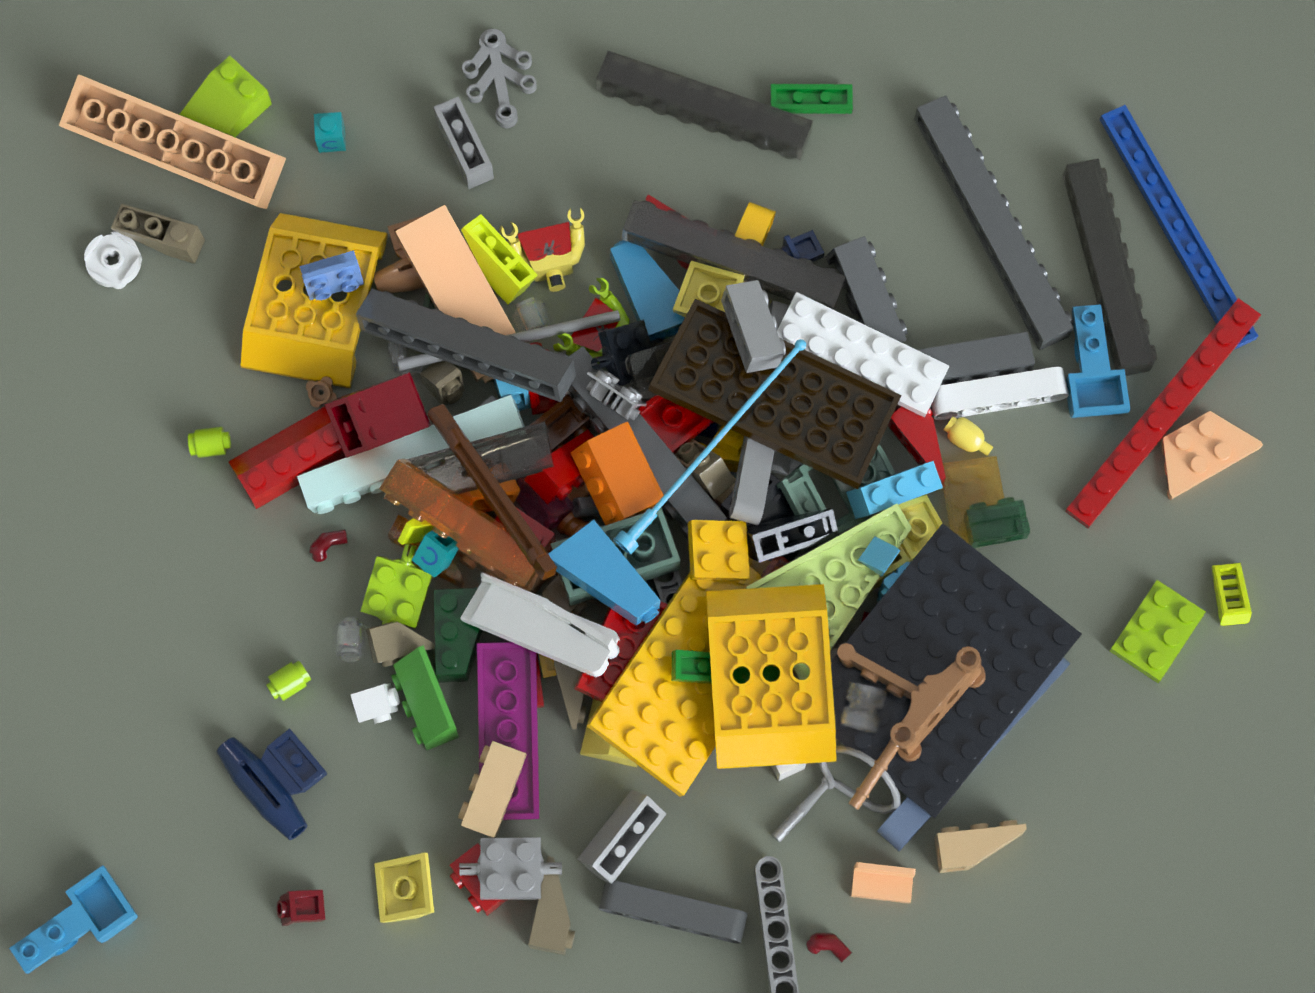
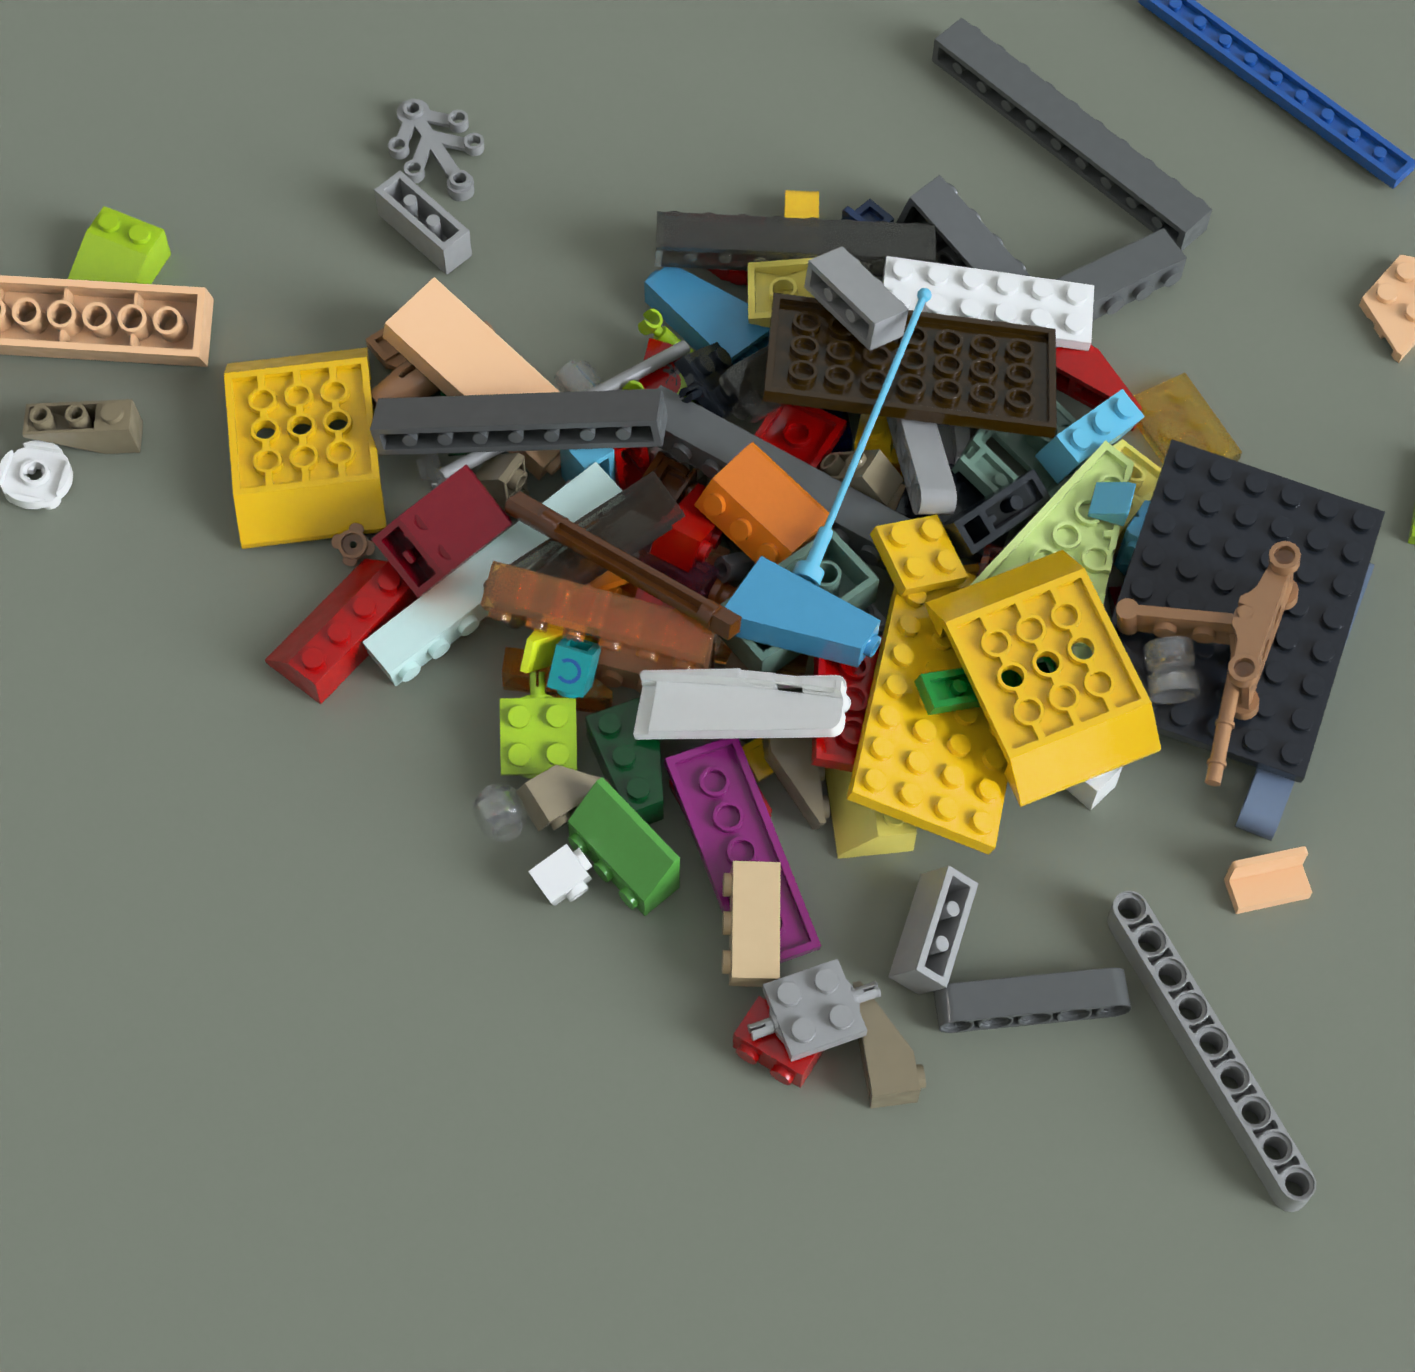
camera: 20 degrees left, 10 degrees down
(95, 907) = (288, 1244): dark azure plate -> none
(209, 442) = (234, 642): lime brick -> none
(270, 781) = (466, 1009): dark blue plate -> none
(288, 680) = (439, 886): lime brick -> none
(301, 907) = (560, 1154): dark red bracket -> none
(325, 541) = (424, 711): dark red arm -> none
(329, 132) = (256, 258): teal brick -> none
(332, 276) = (325, 398): medium blue bracket -> none
(404, 888) = (685, 1086): light yellow slope -> none
(499, 262) = (524, 331): neon yellow slope -> none
(550, 249) = (570, 309): torso -> none
(604, 383) = (741, 411): light grey hinge -> none
(704, 105) = (688, 108): clear smoke brick -> none
(812, 98) = (808, 68): green plate -> none
(829, 783) = (1153, 790): light grey piece -> none
(830, 942) = (1234, 973): dark red arm -> none
(967, 435) = (1142, 361): light yellow plant -> none
(967, 848) = (1347, 810): tan slope -> none
(996, 522) = (1228, 432): clear green brick -> none
(999, 393) = (1161, 304): white beam -> none
(1096, 387) = (1262, 266): dark azure plate -> none
(1108, 267) = (1220, 143): clear smoke brick -> none
(1163, 413) = (1350, 274): red plate -> none

